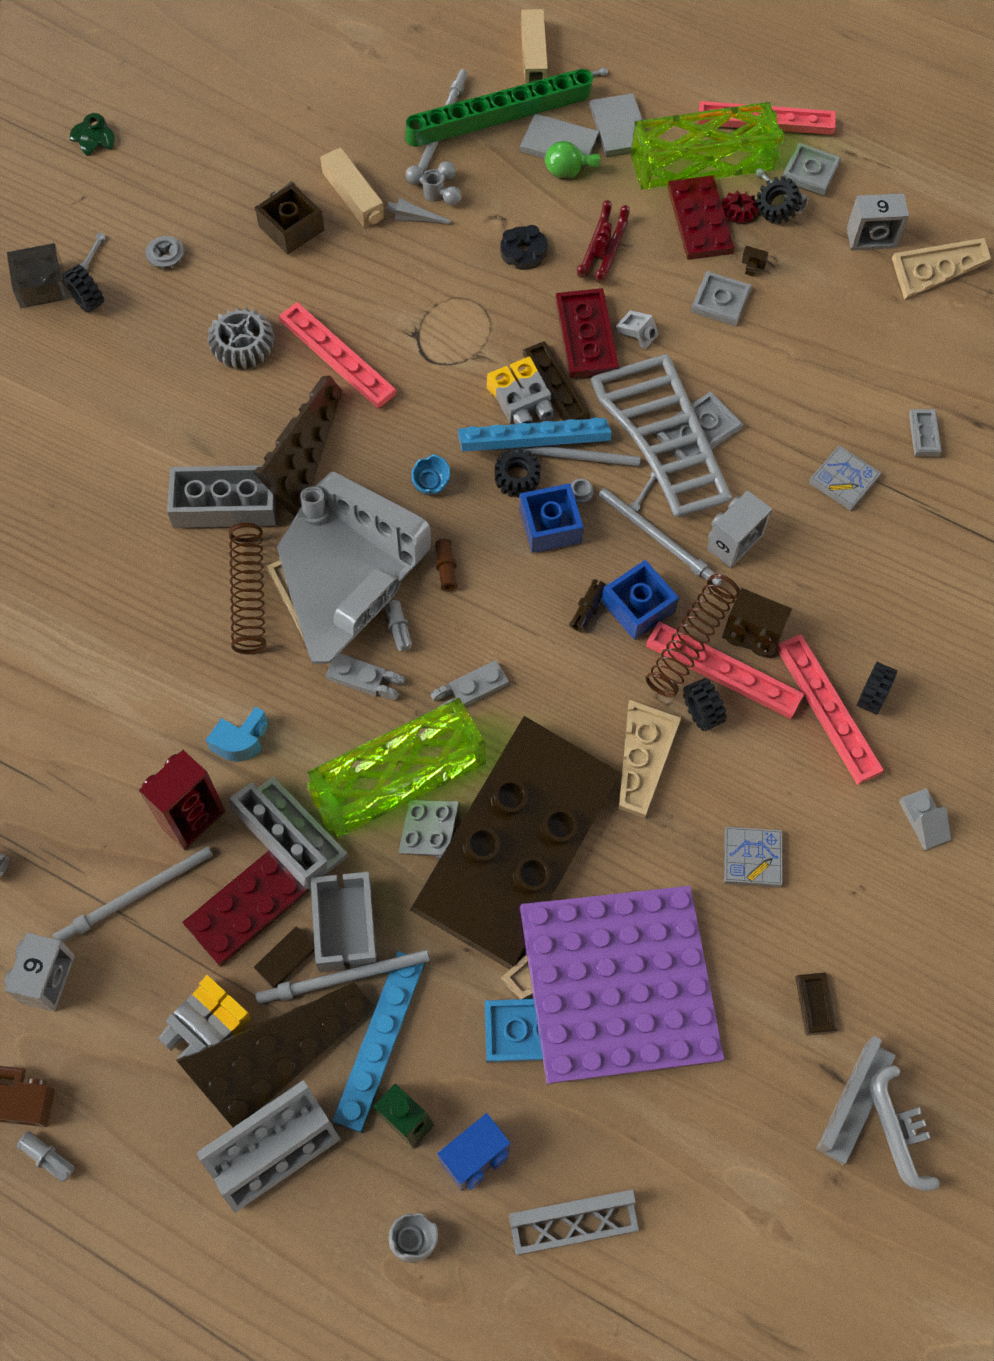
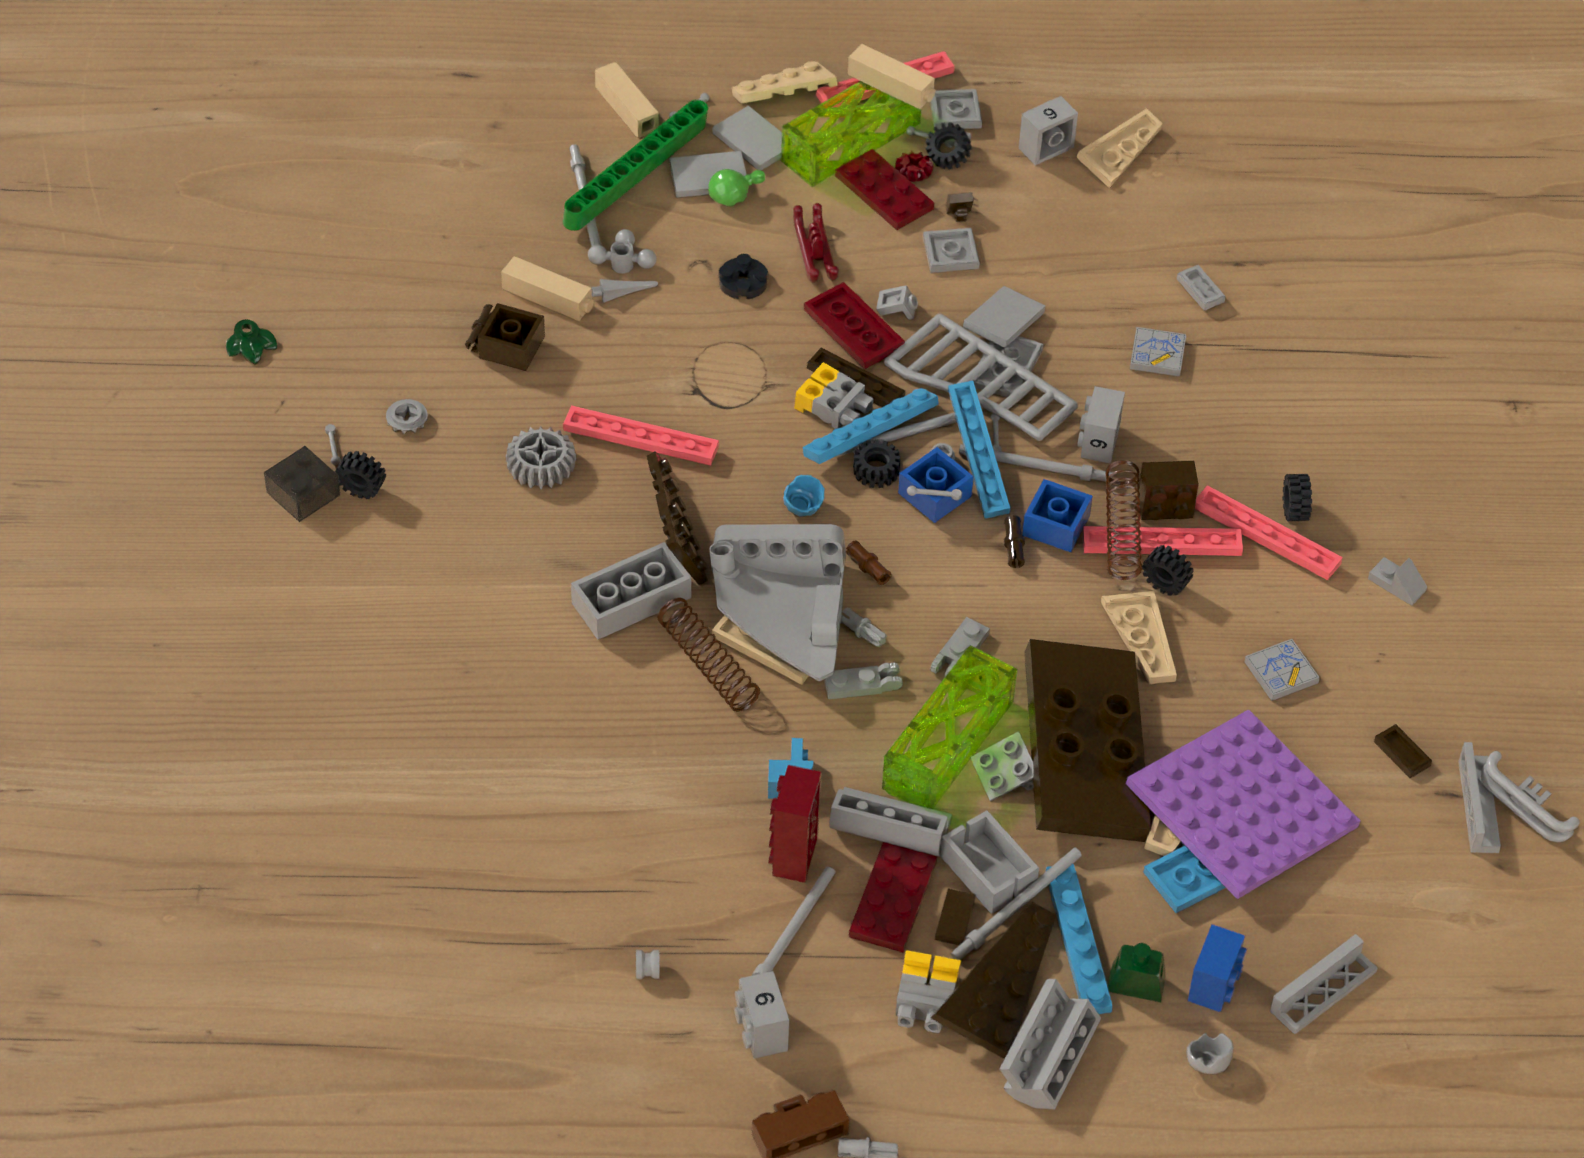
camera: 30 degrees left, 15 degrees down
(554, 537) = (956, 494): none -> light grey hinge
(612, 501) = (979, 449): none -> dark azure plate
(675, 85) = (784, 83): none -> tan wing
(723, 382) = (1004, 316): none -> light grey tile
(757, 113) = (891, 76): none -> tan brick

